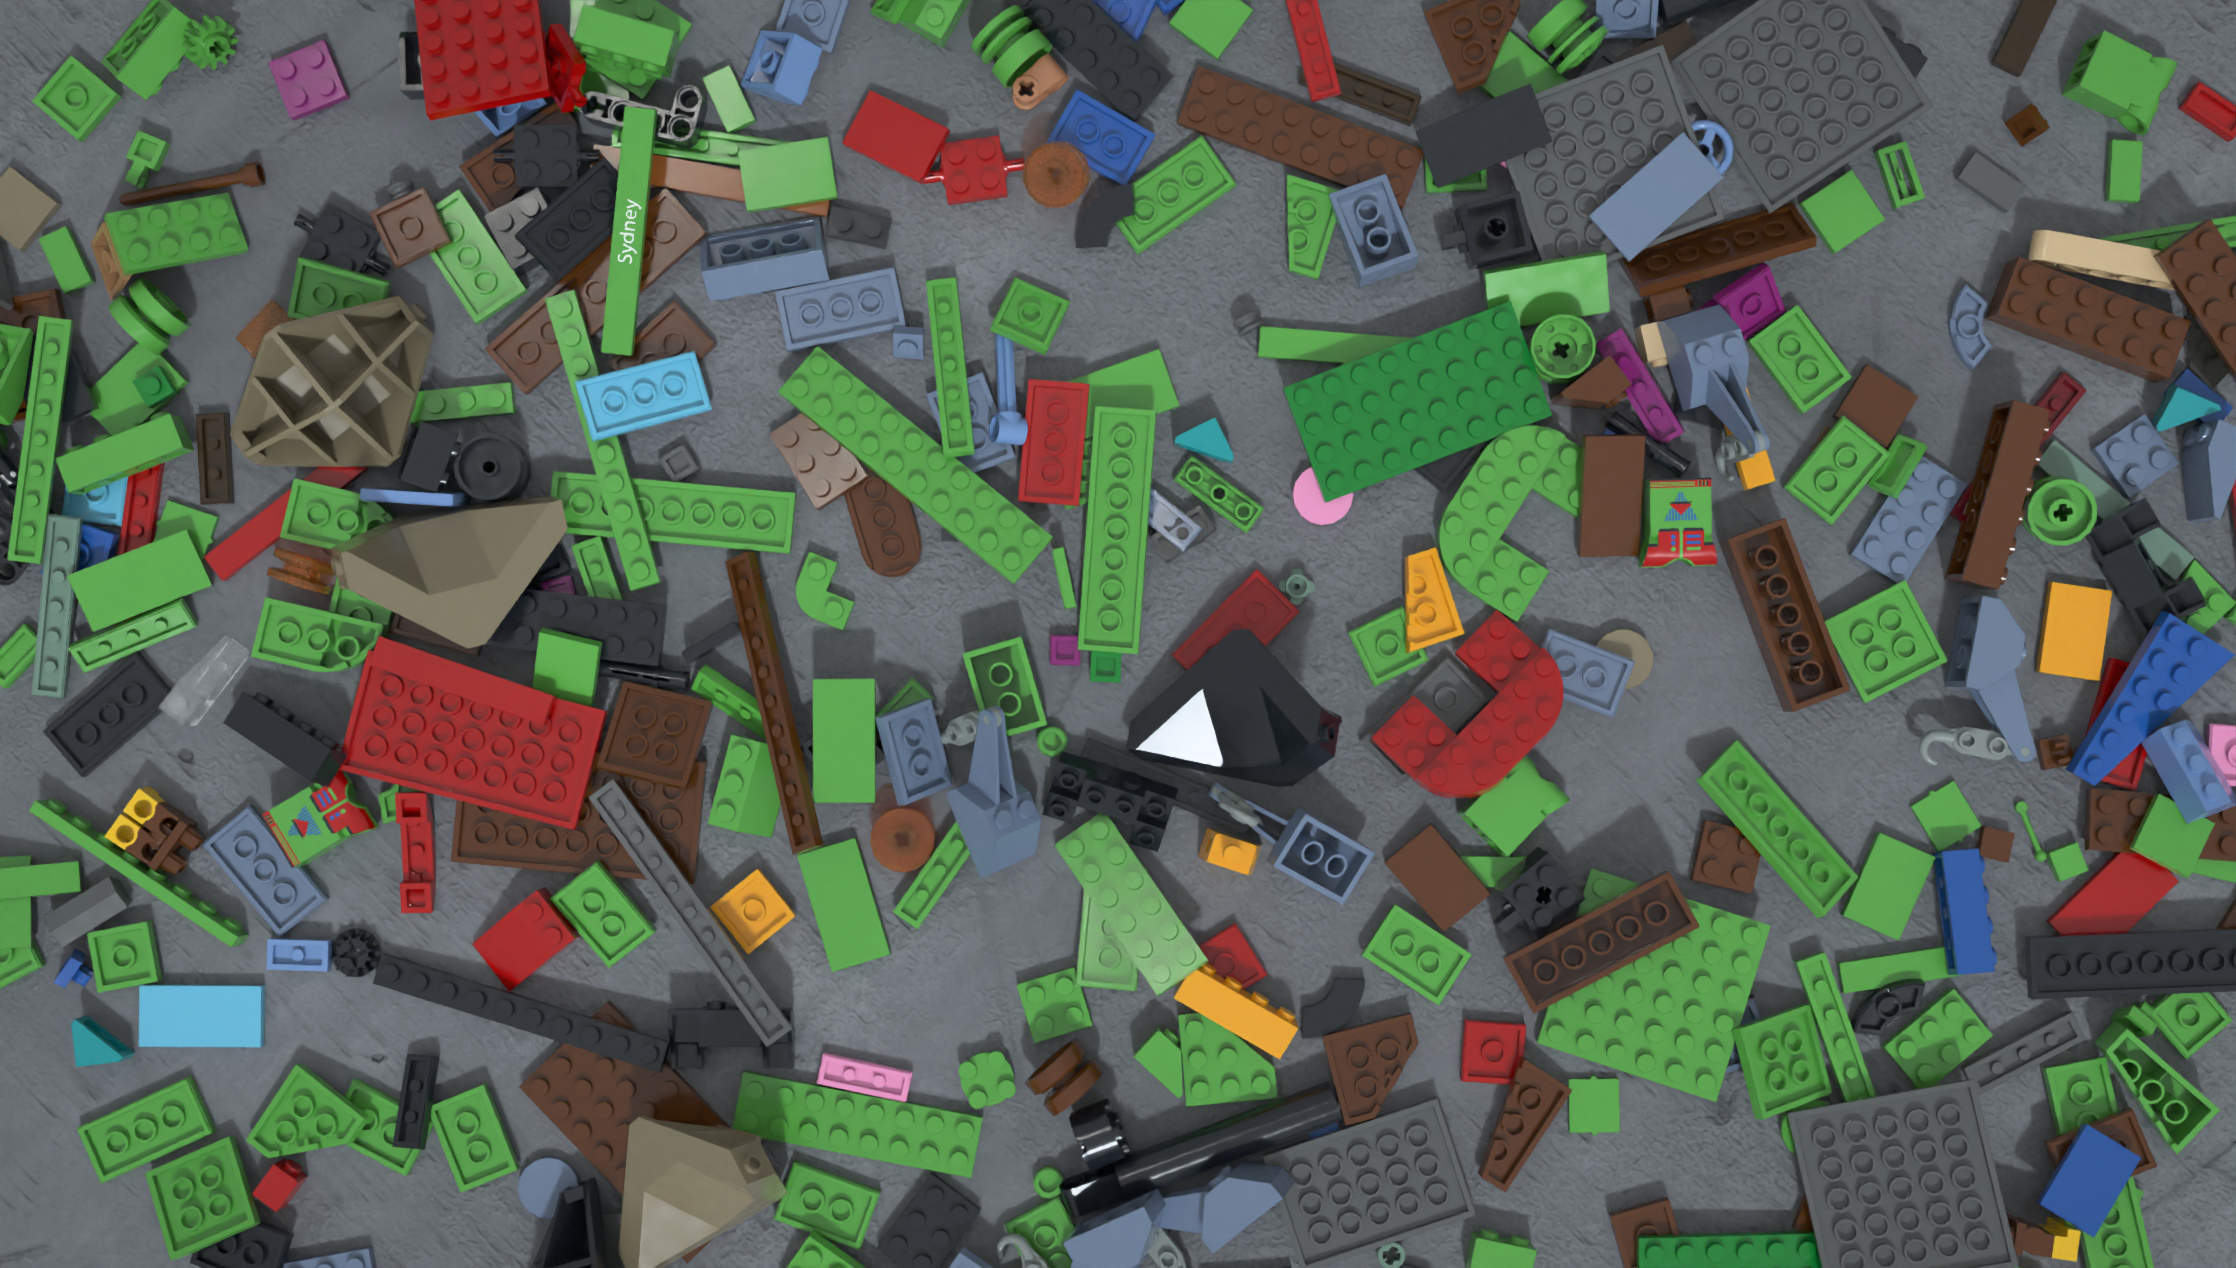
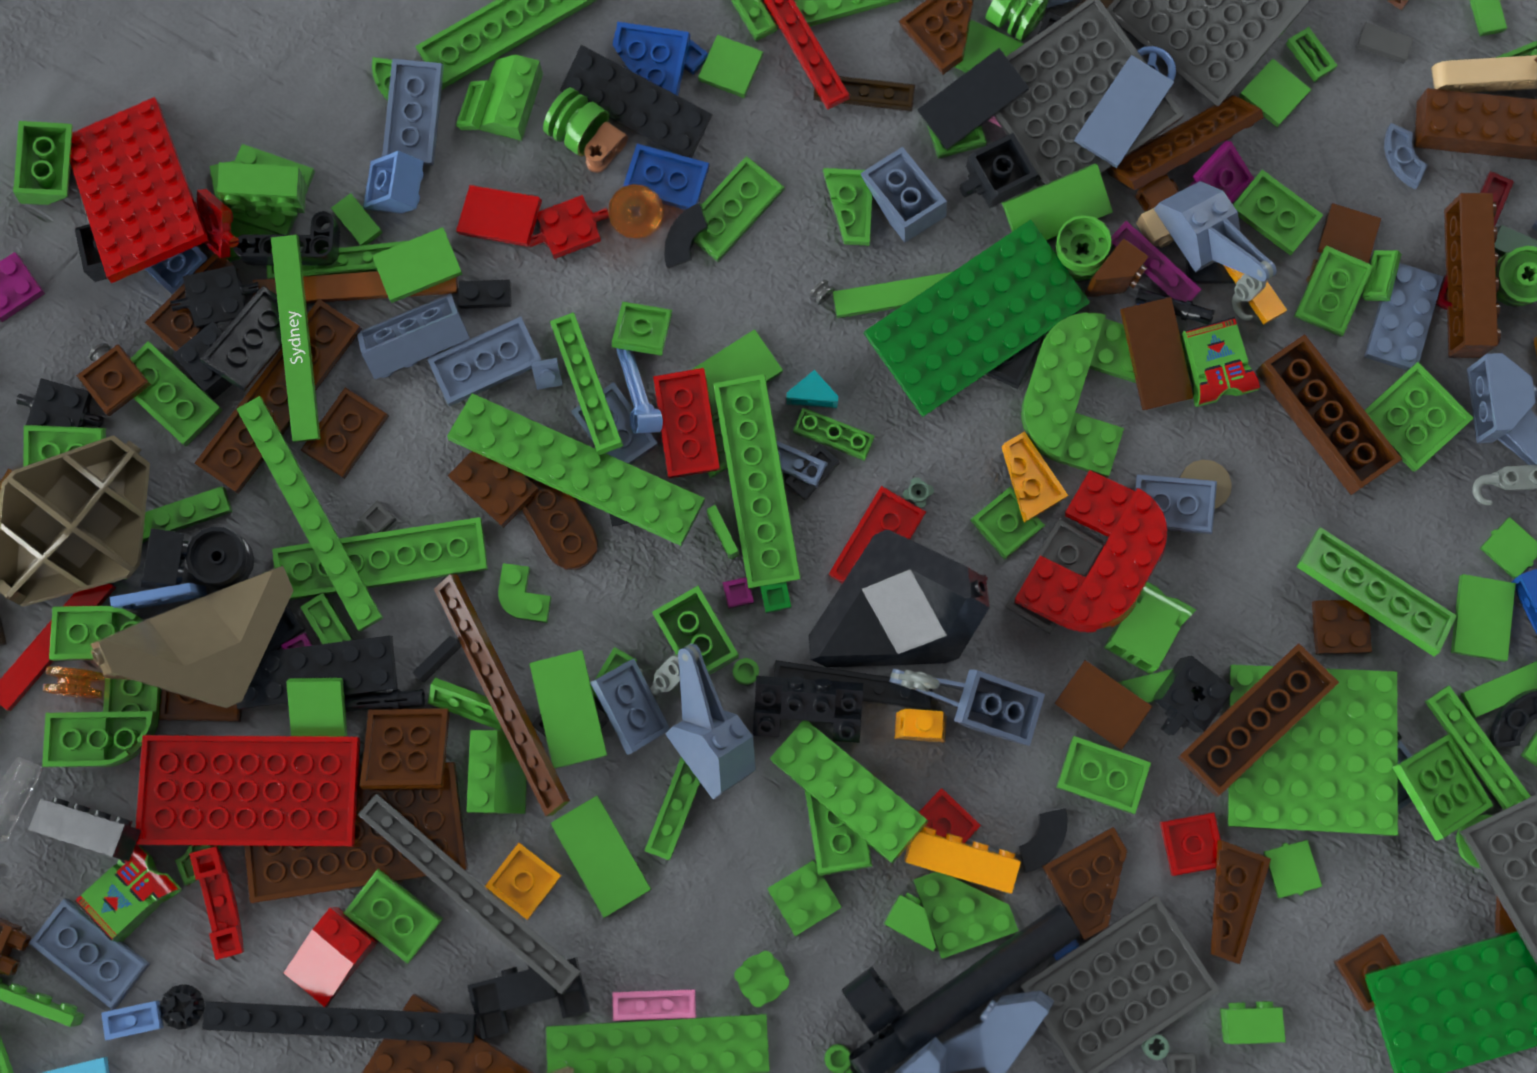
camera: 10 degrees left, 10 degrees down
(462, 680) = (228, 740): red tile -> none
(643, 396) = (334, 467): medium azure tile -> none
(906, 857) = (623, 791): clear orange wheel -> none
(1068, 1081) = (832, 959): reddish brown wheel -> none
(1296, 134) = (820, 137): reddish brown plate -> none
(1310, 503) = (911, 422): bright pink tile -> none

